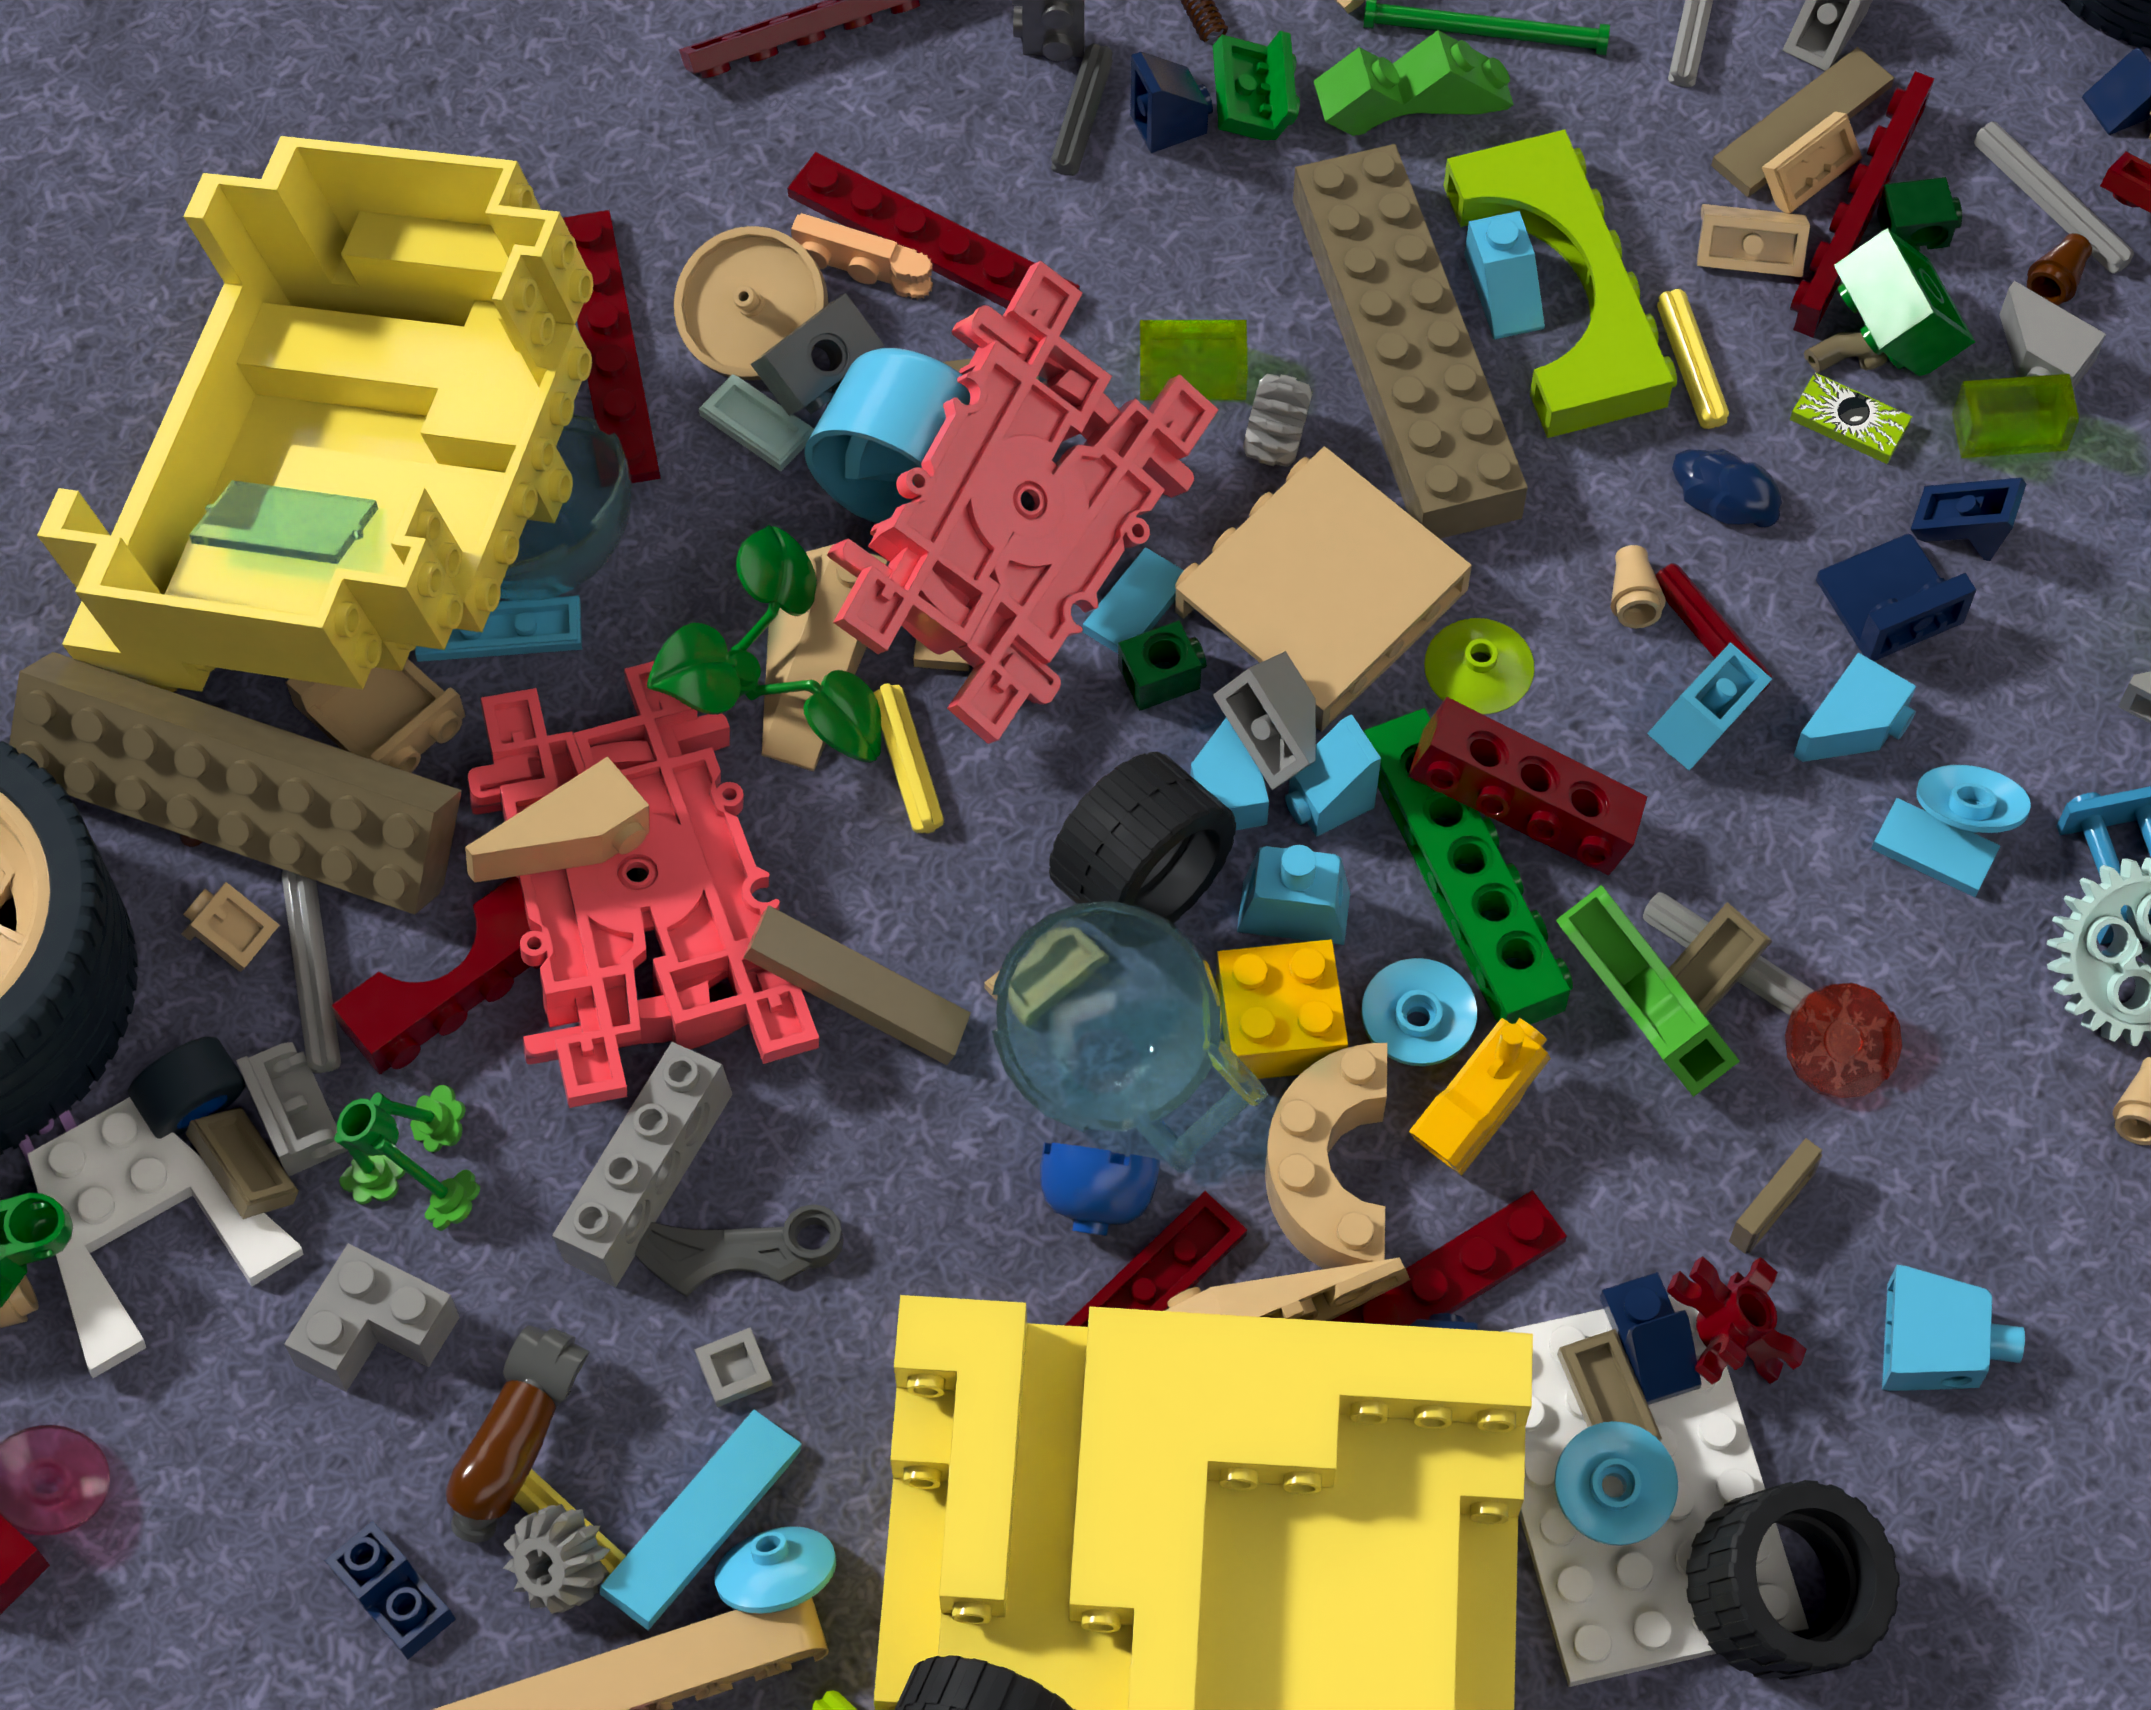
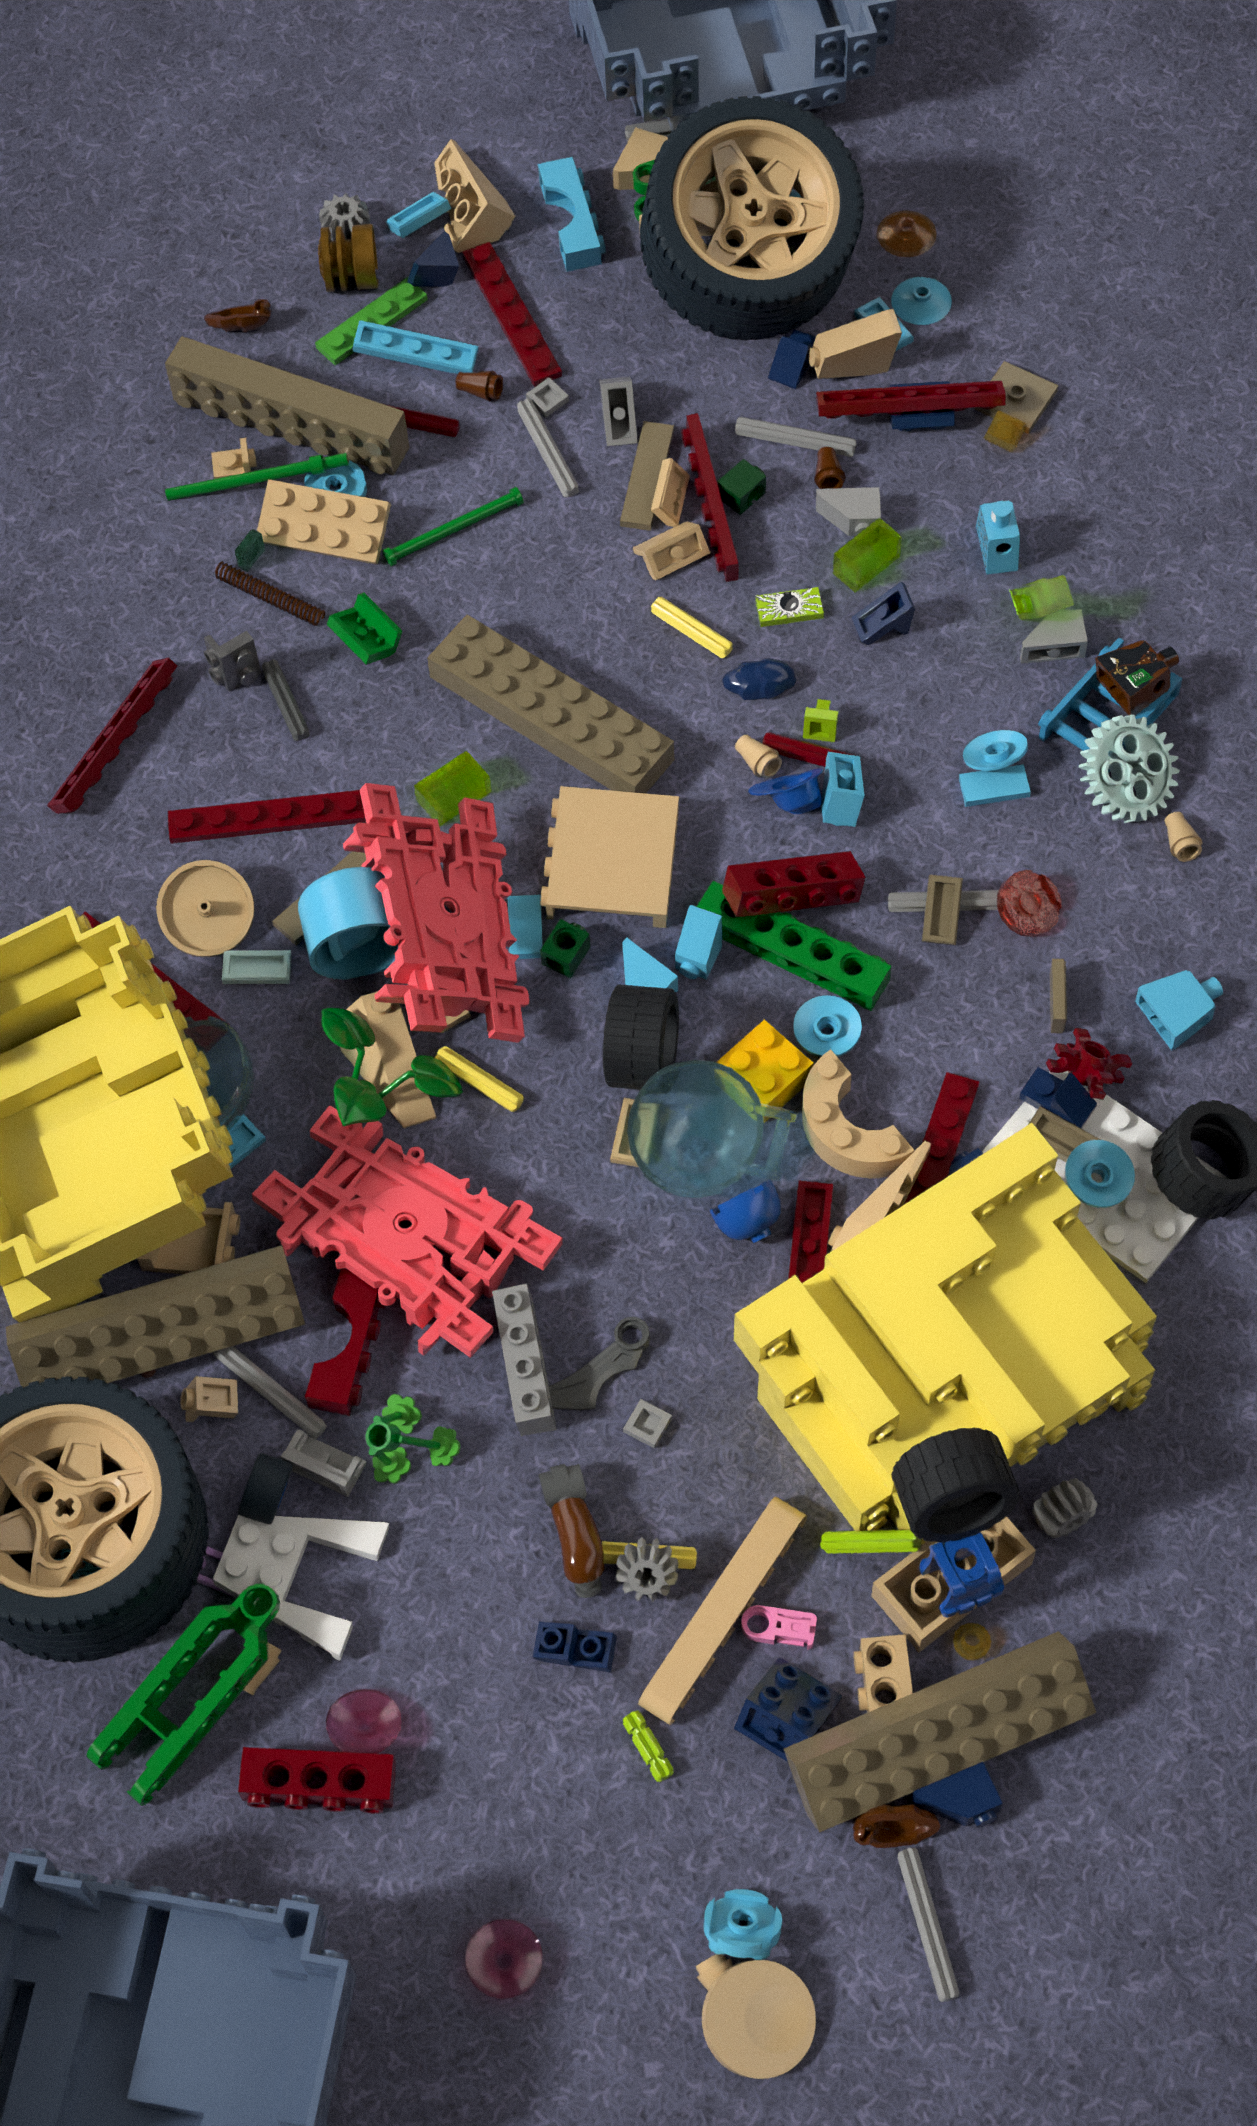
camera: 35 degrees left, 0 degrees up
(241, 1162) = (322, 1505): dark tan tile -> none
(284, 522) = (76, 1176): clear light blue piece -> none
(364, 1305) = (449, 1522): light grey brick -> none
(567, 828) = (359, 1222): tan slope -> none
(700, 1519) = (696, 1502): medium azure tile -> none
(775, 1570) = (752, 1498): medium azure dish -> none
(789, 366) = (256, 923): dark grey brick -> none
(857, 985) = (556, 1201): dark tan tile -> none
(864, 256) = (243, 845): light nougat hinge -> none
(1166, 102) = (330, 668): dark blue slope -> none
(1273, 717) = (649, 934): light grey slope -> none
(1277, 420) = (522, 789): light grey gear -> none
(1295, 895) = (727, 1010): medium azure torso -> none
(1429, 79) = (452, 571): bright green arch -> none
(1479, 685) = (713, 856): lime dish -> none
(1482, 1094) = (892, 1042): yellow piece -> none
(1505, 274) = (569, 644): medium azure slope -> none
(1617, 361) = (554, 591): lime arch -> none
(1640, 666) = (793, 792): none -> blue piece
(1647, 990) = (927, 941): bright green arch -> none
(1759, 597) = (820, 722): none -> lime tile
(1840, 347) = (759, 572): dark tan arm -> none
(1858, 713) = (910, 745): medium azure slope -> none
(1894, 597) = (880, 680): dark blue bracket -> none
(1902, 304) = (775, 534): brick -> none

